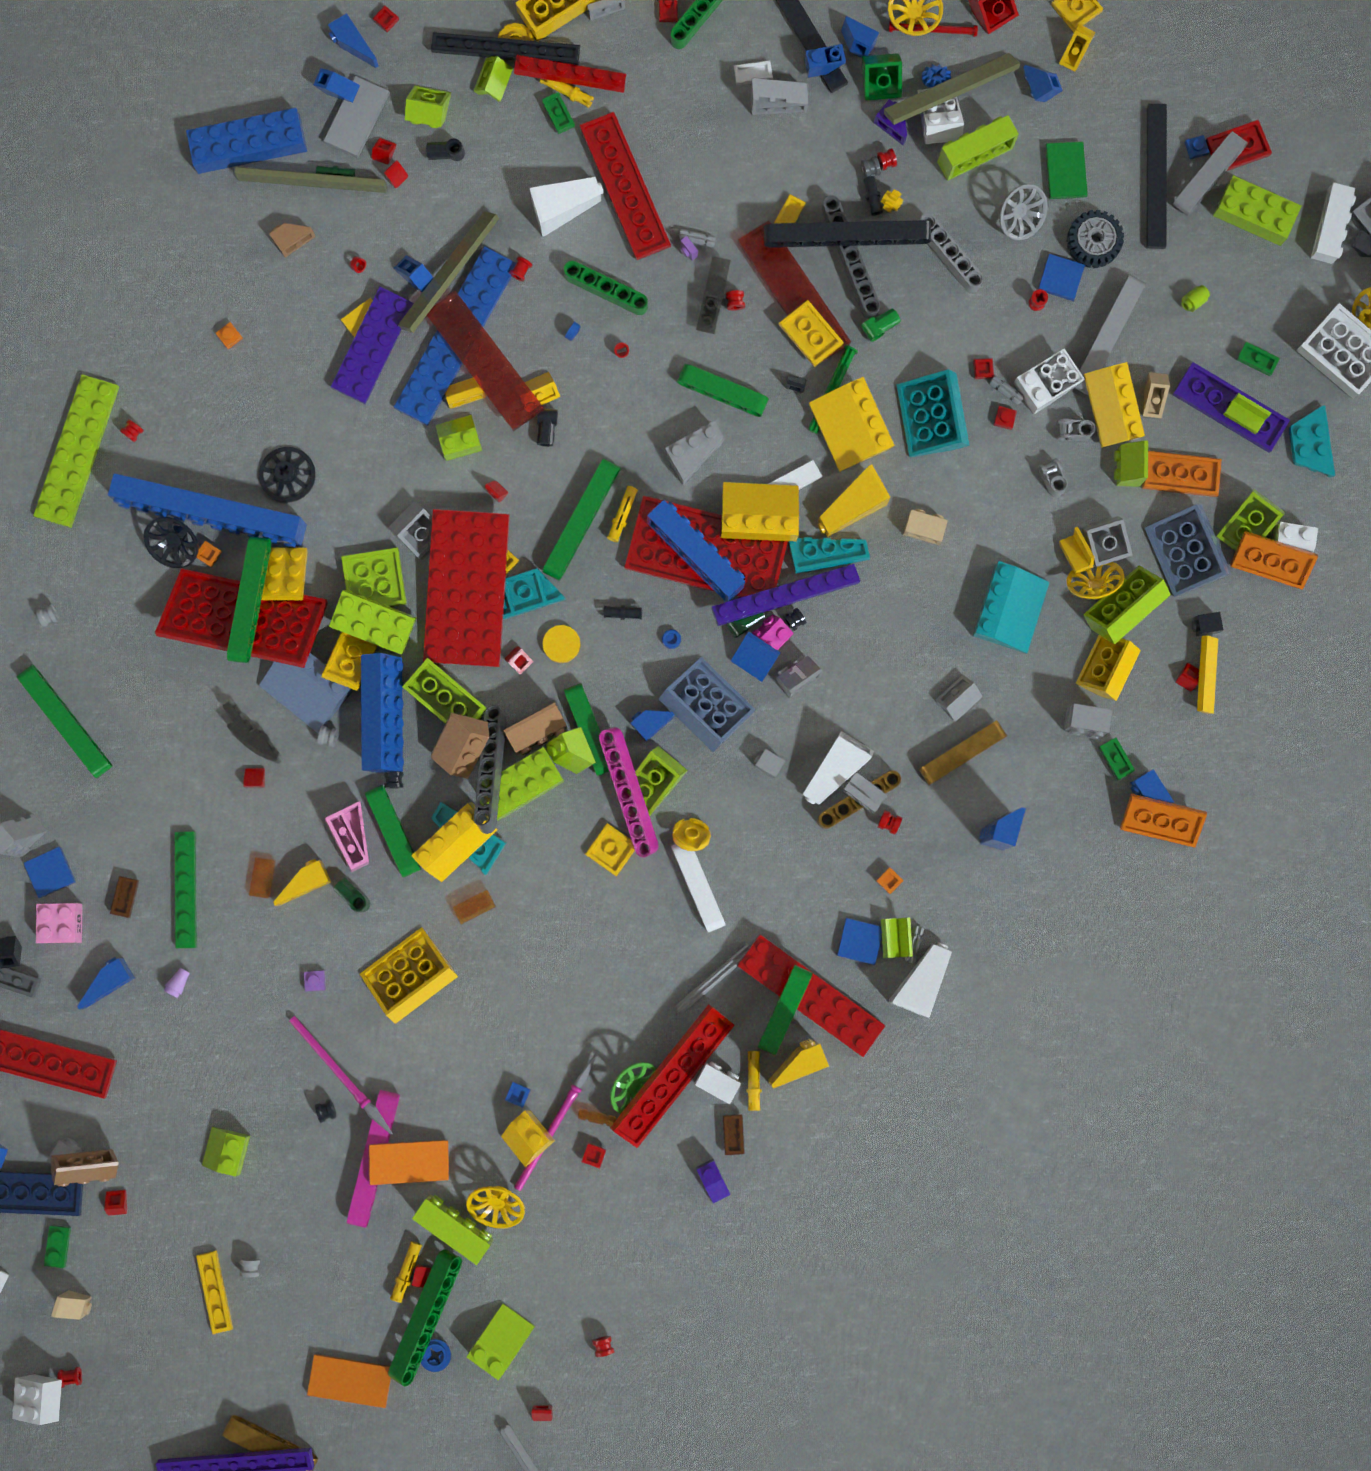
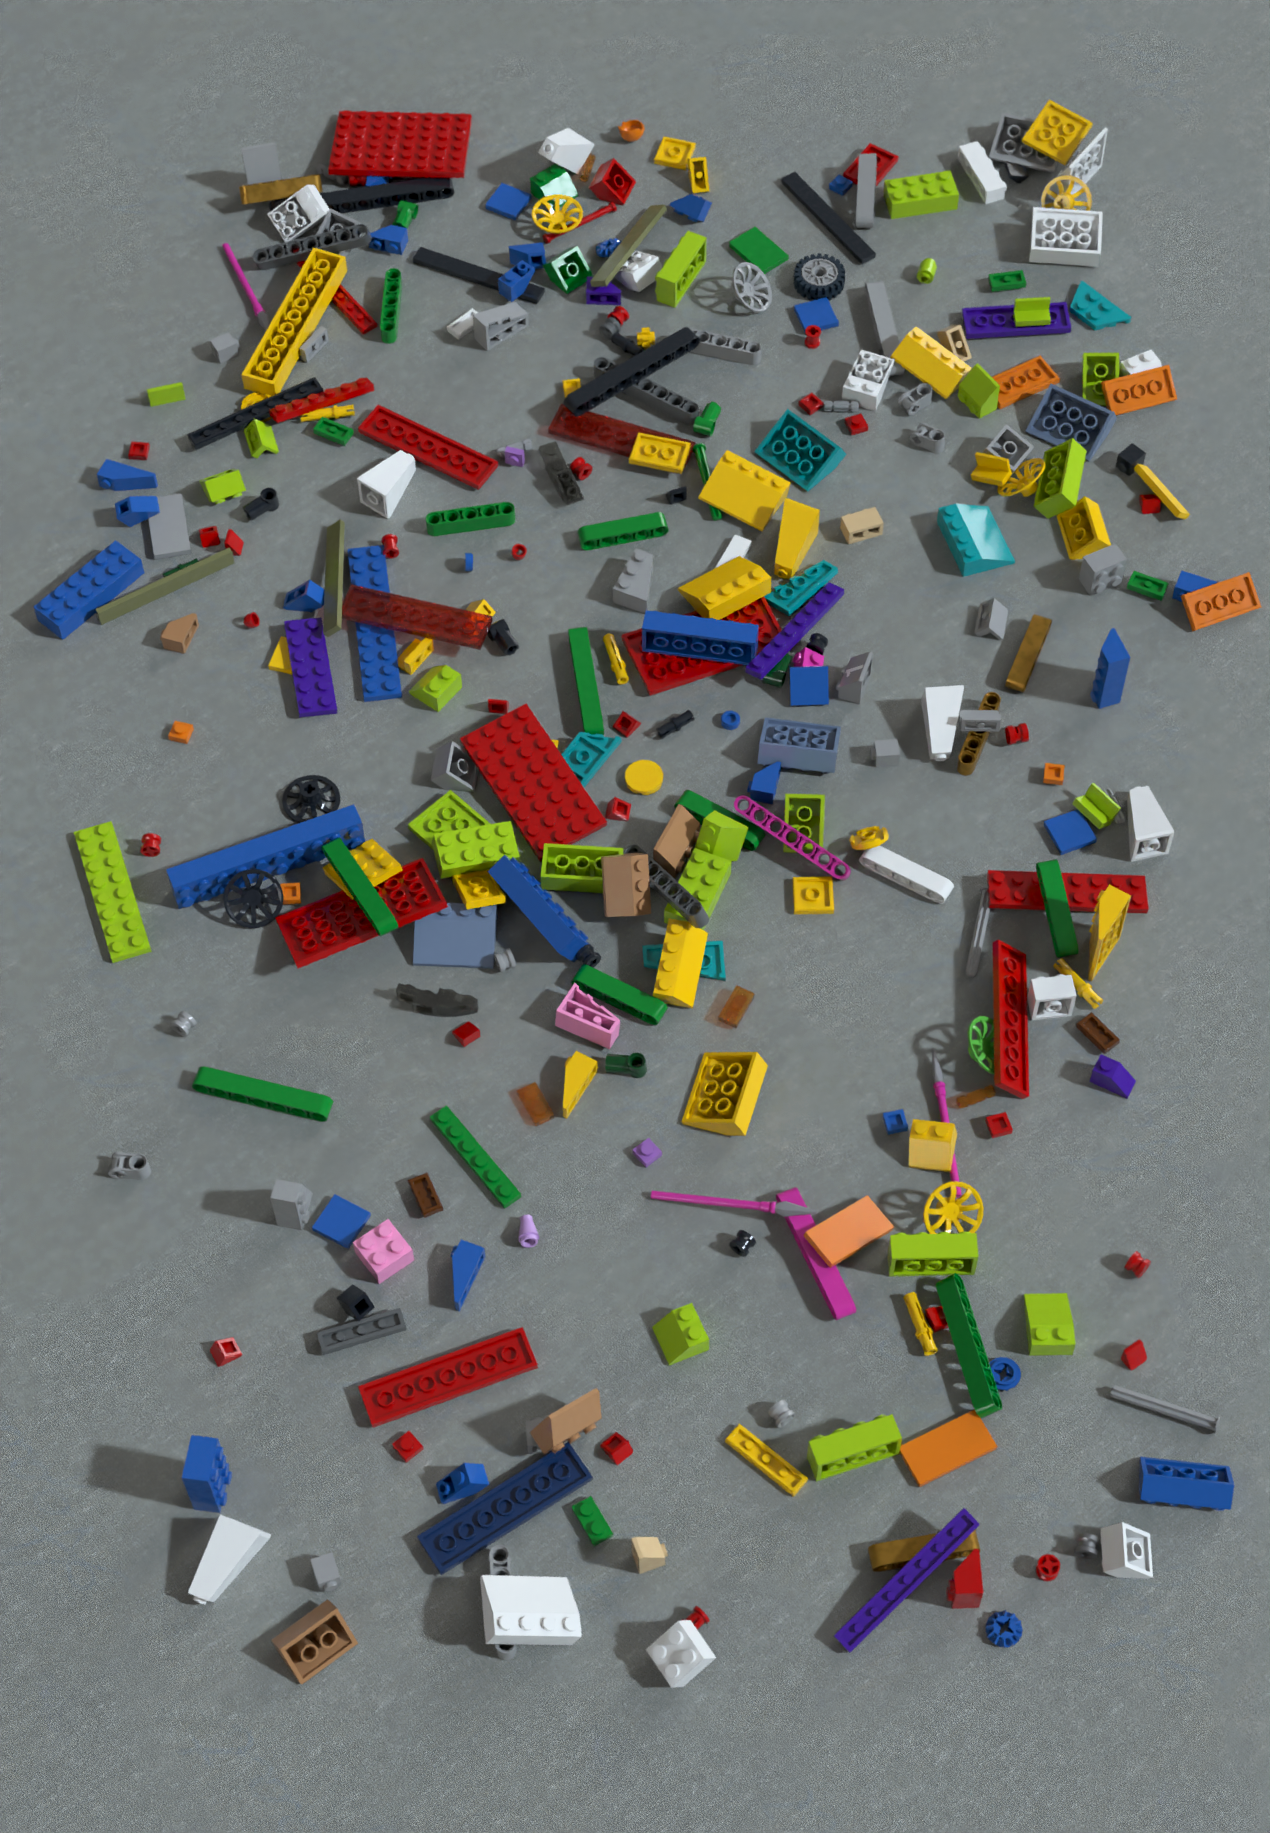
camera: 30 degrees left, 25 degrees down
(276, 1337) = (854, 1447): none -> lime brick
(586, 582) = (626, 724): none -> red slope

